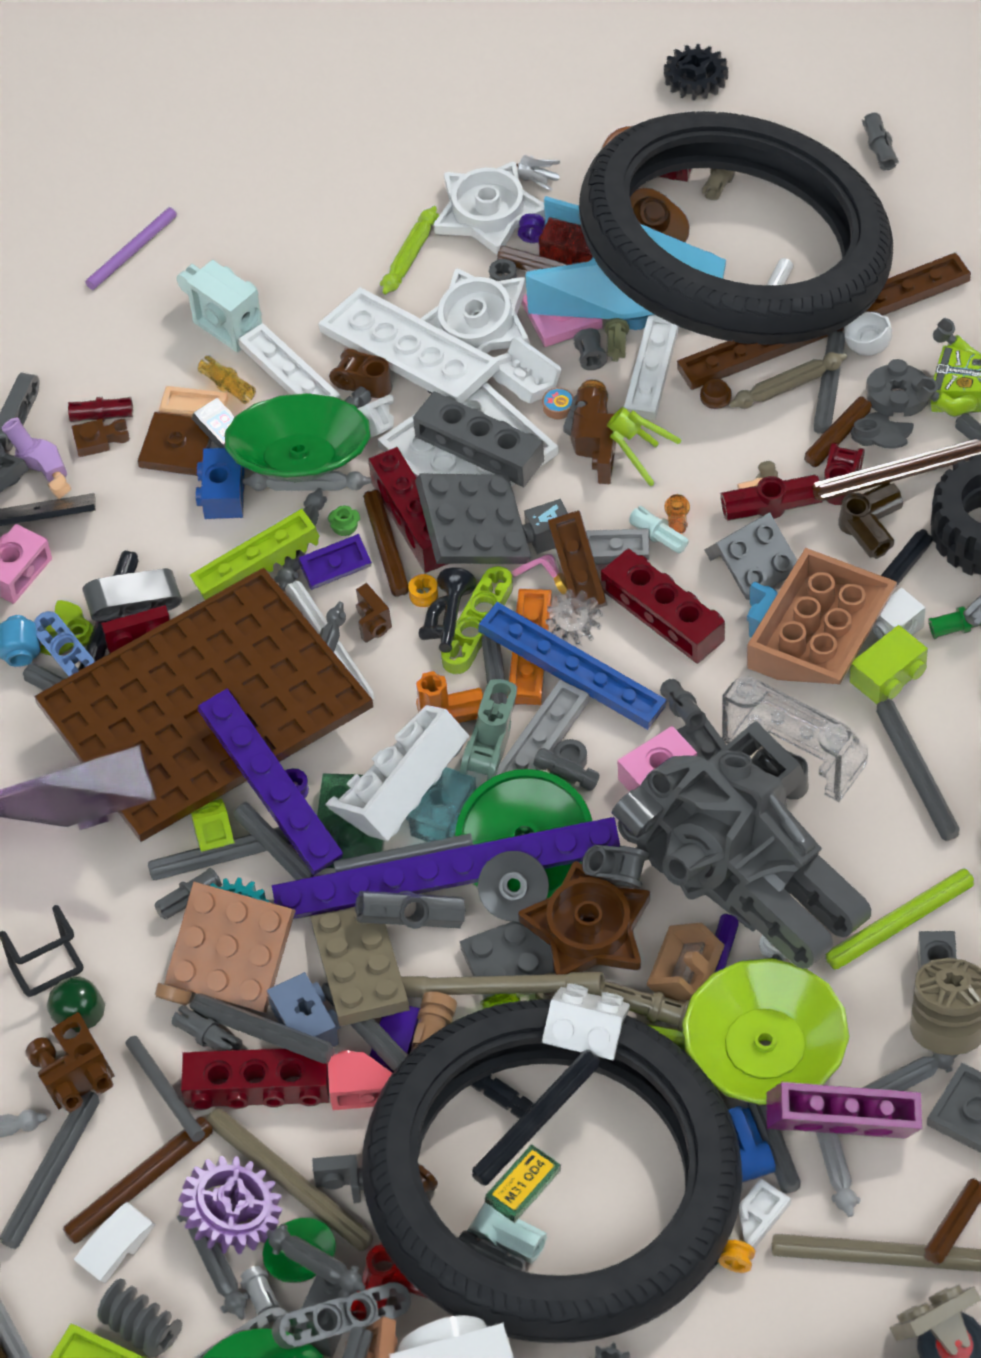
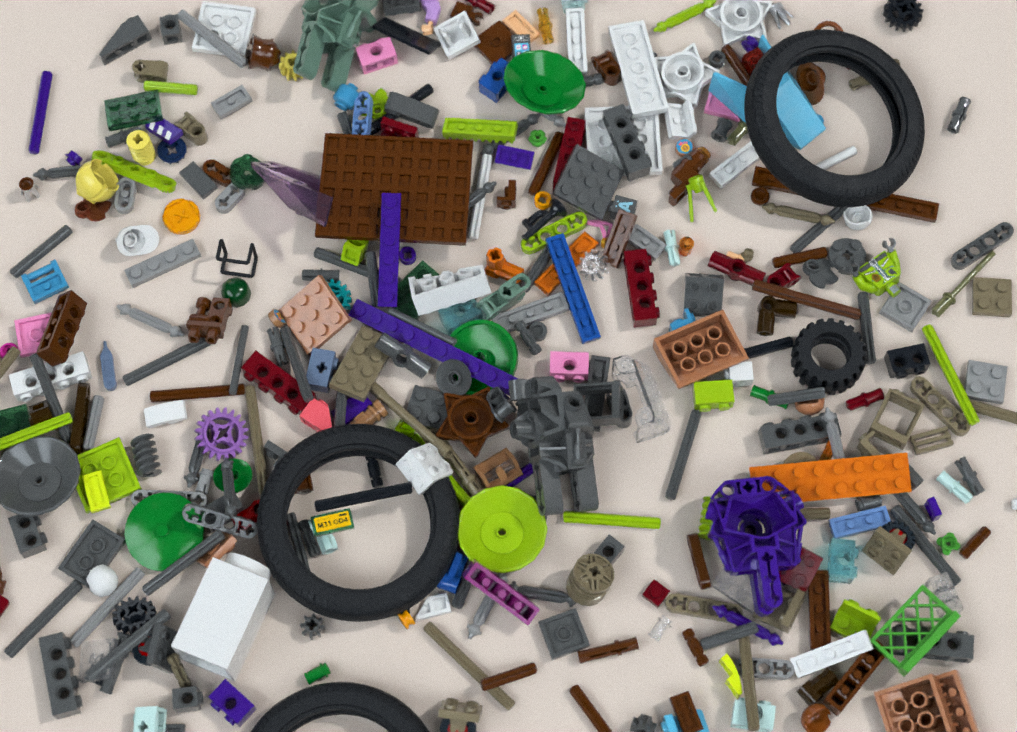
camera: 35 degrees right, 15 degrees up
(111, 465) = (457, 35): none -> white plate
(378, 415) = (595, 95): white tile -> none
(683, 704) = (605, 344): dark grey pin -> none

